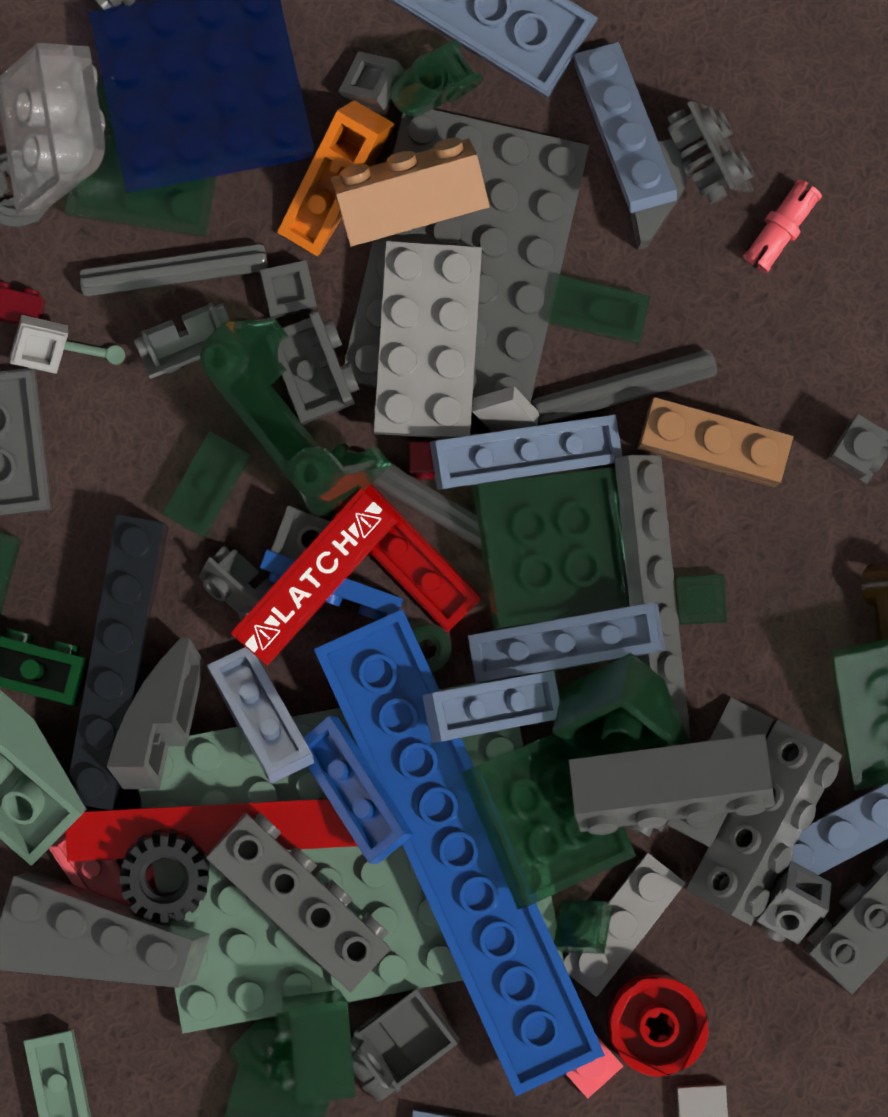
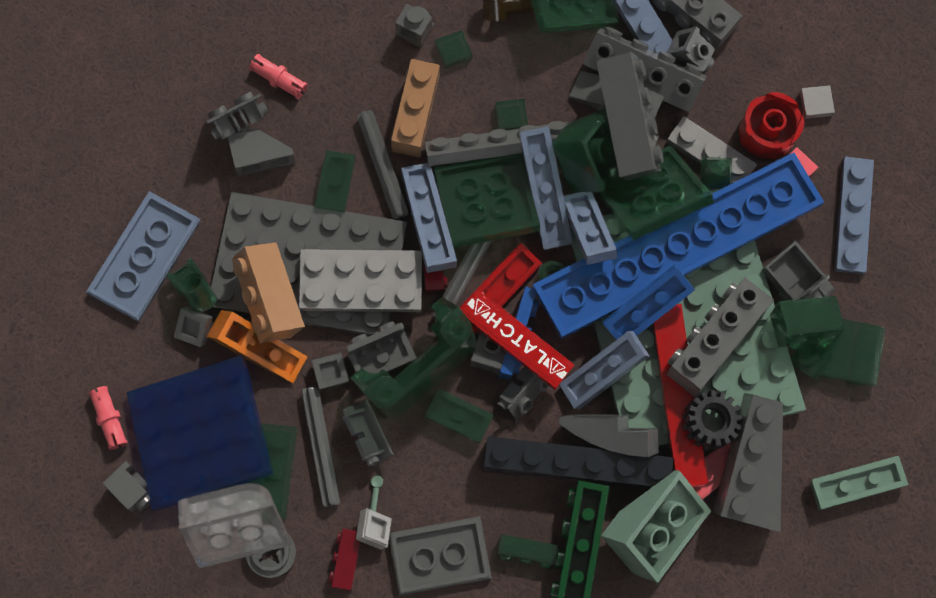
camera: 95 degrees left, 10 degrees down
(505, 410) = (403, 232): light grey tile -> none
(625, 127) = (221, 166): sand blue plate -> none
(819, 512) = (453, 49): none -> clear green tile

